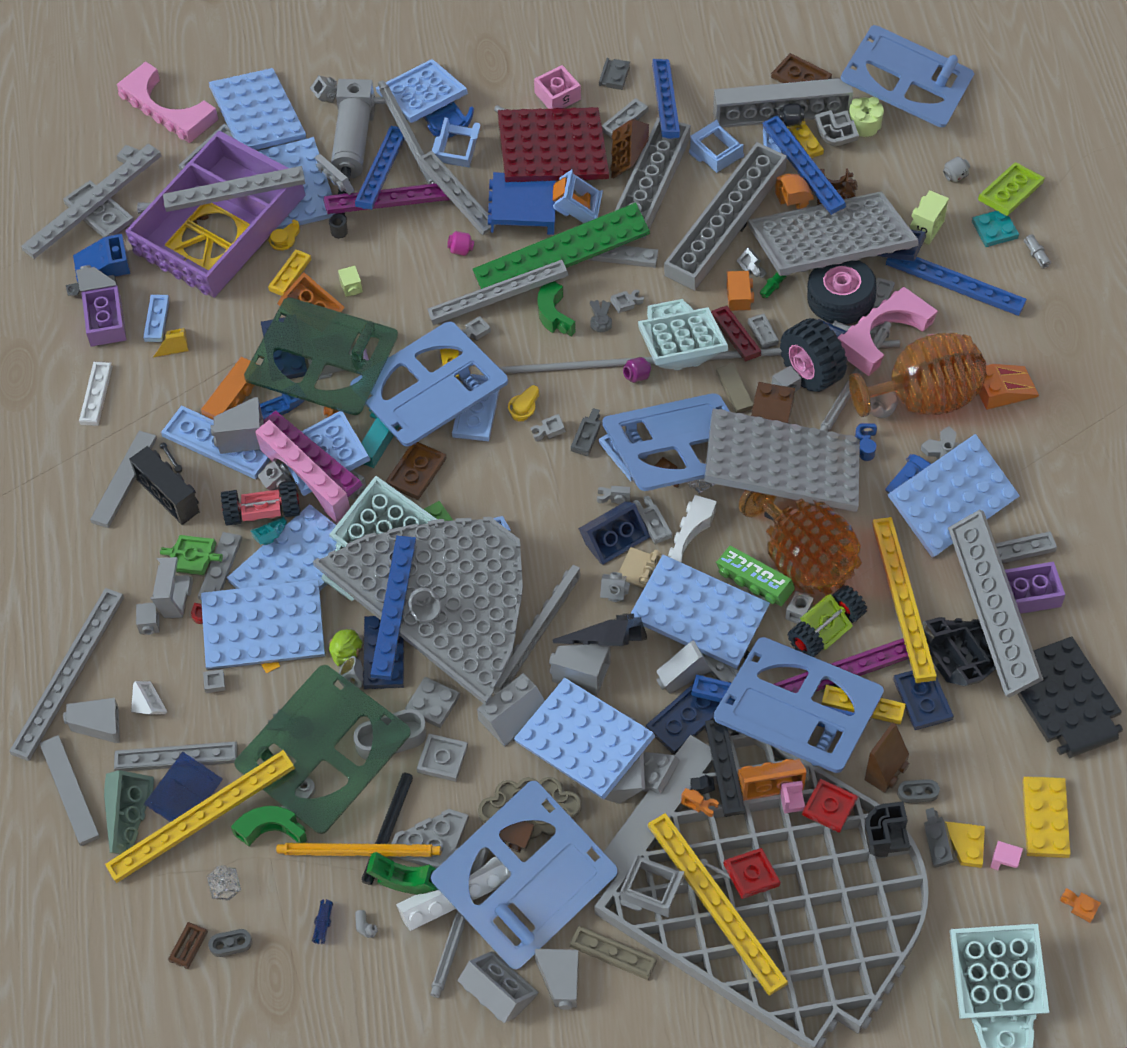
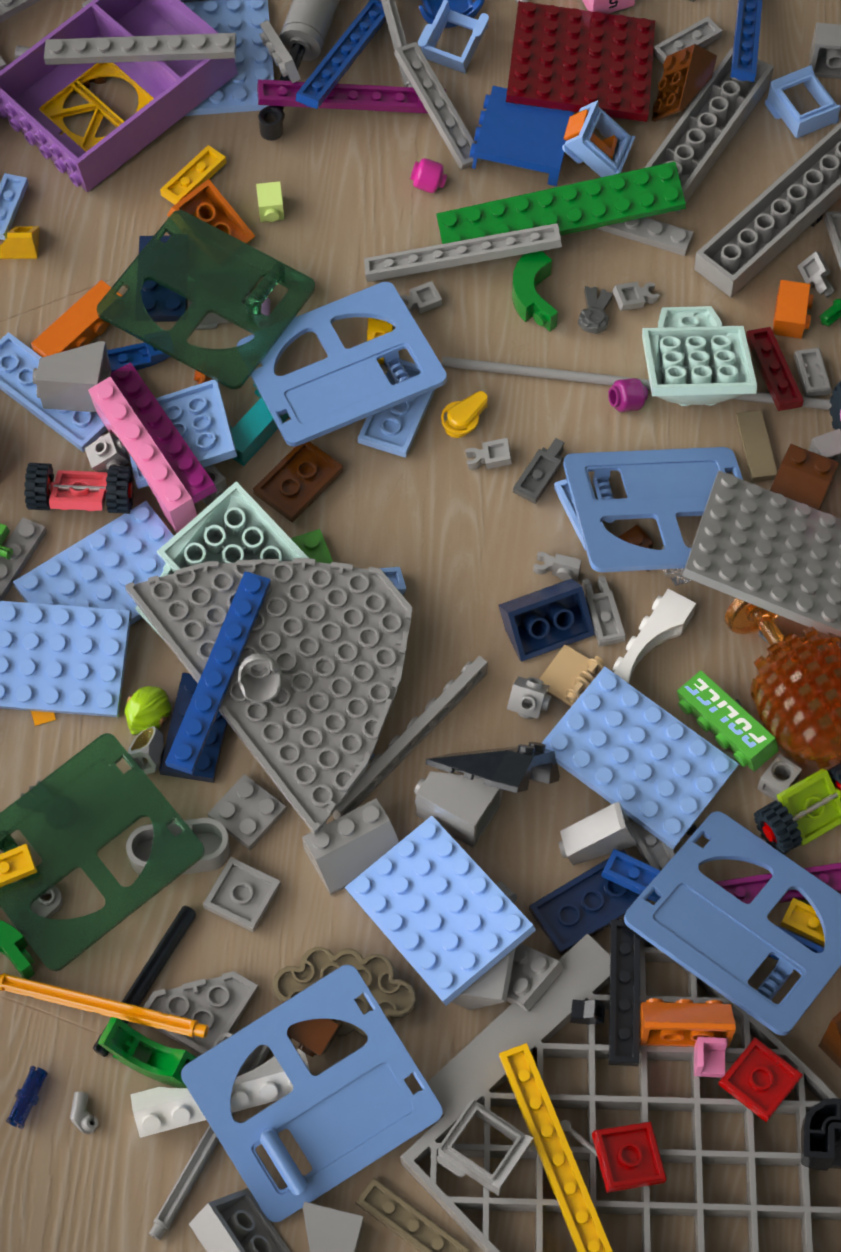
camera: 10 degrees right, 5 degrees up
(267, 533) = (83, 529): teal wing -> none
(284, 238) = (198, 126): yellow piece -> none
(696, 801) = (571, 1032): orange plate -> none

